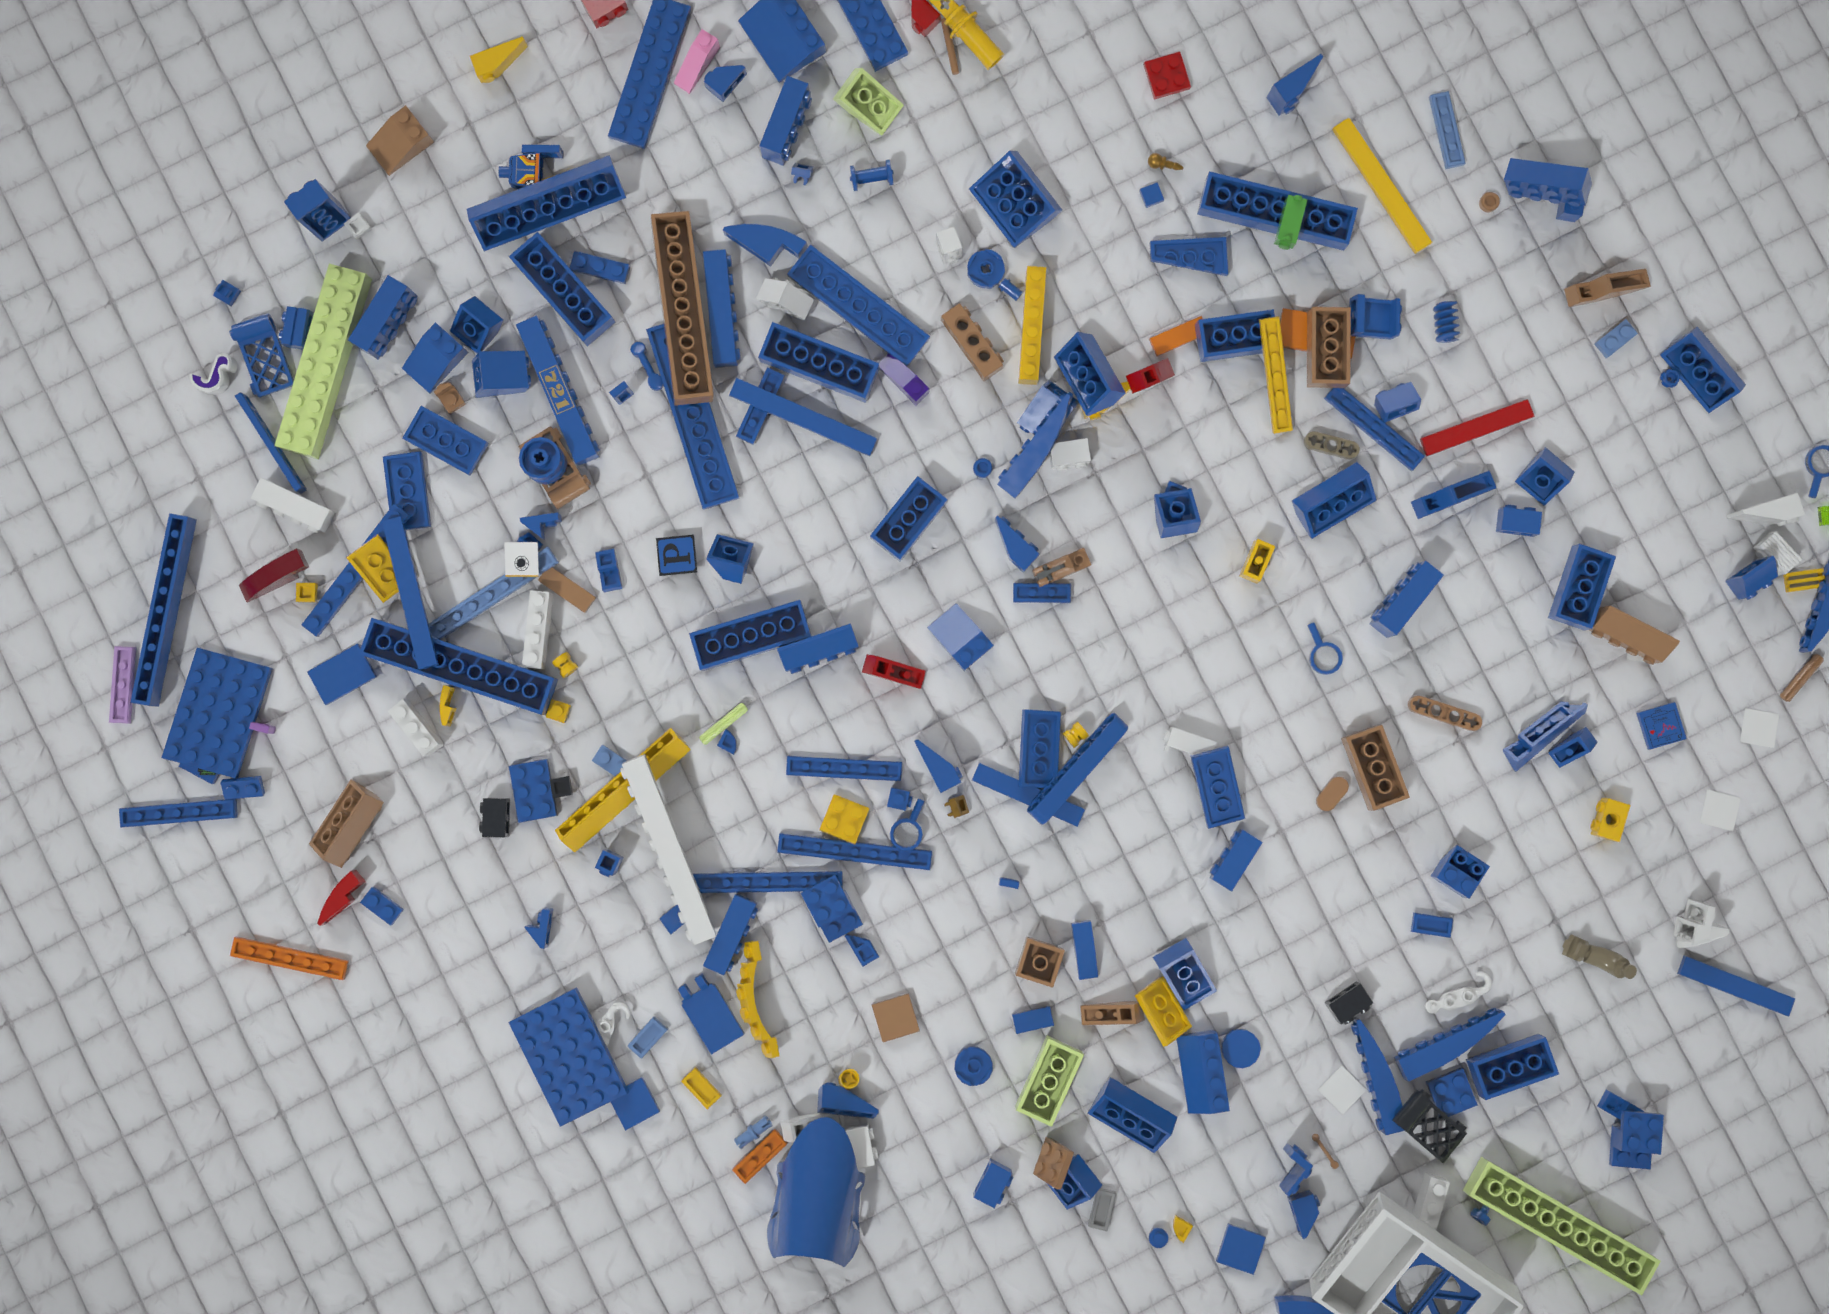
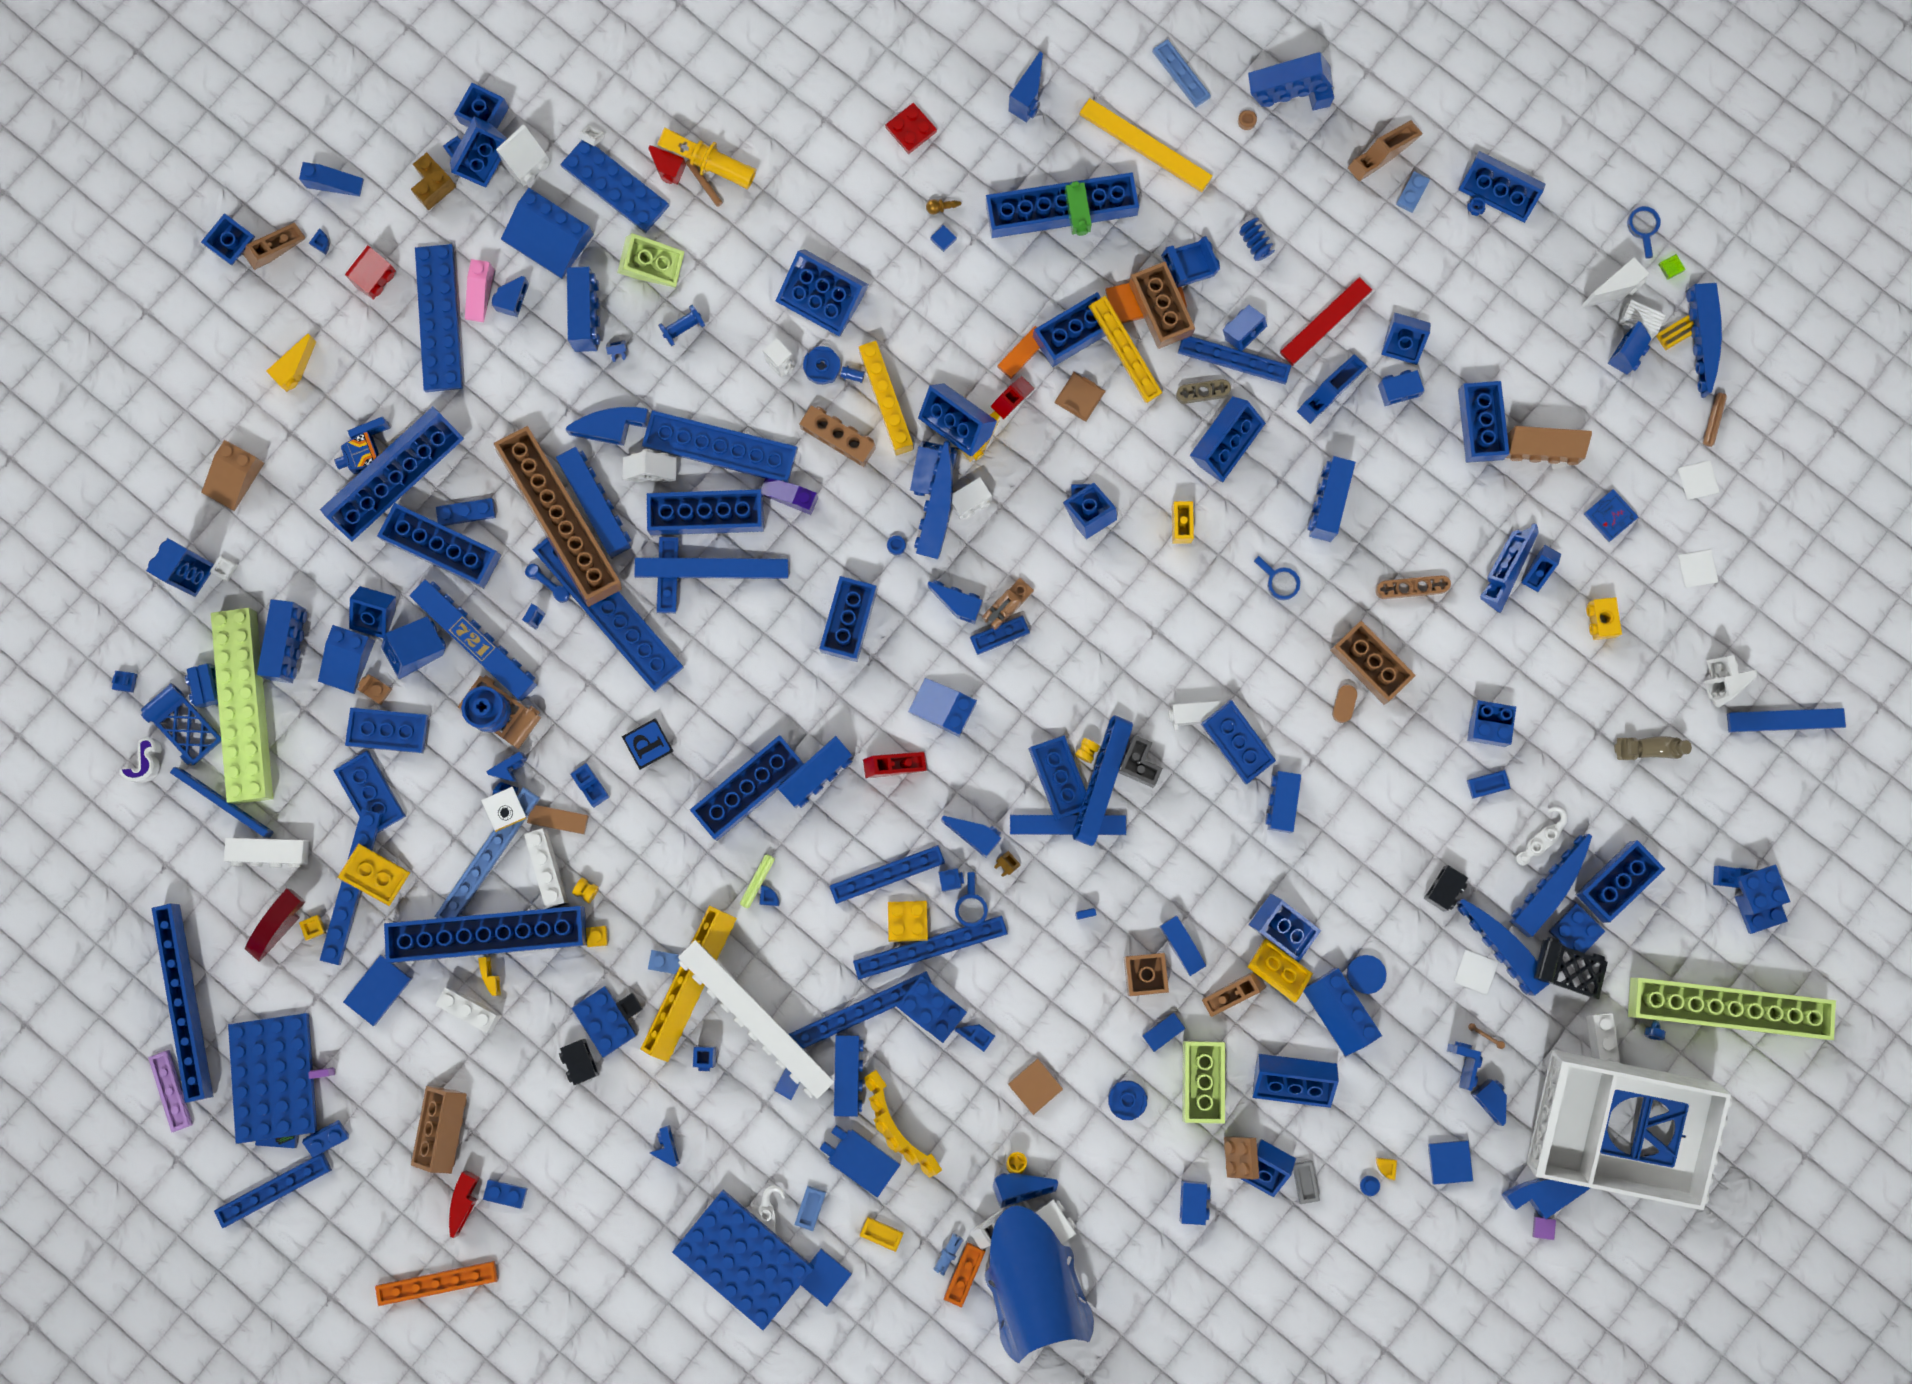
camera: 25 degrees left, 5 degrees down
(410, 593) = (411, 884): blue tile -> none
(730, 557) = (698, 725): blue slope -> none
(1114, 765) = (1136, 767): none -> flat silver brick
(1196, 254) = (1003, 274): blue wing -> none
(1214, 400) = (1080, 396): none -> medium nougat piece

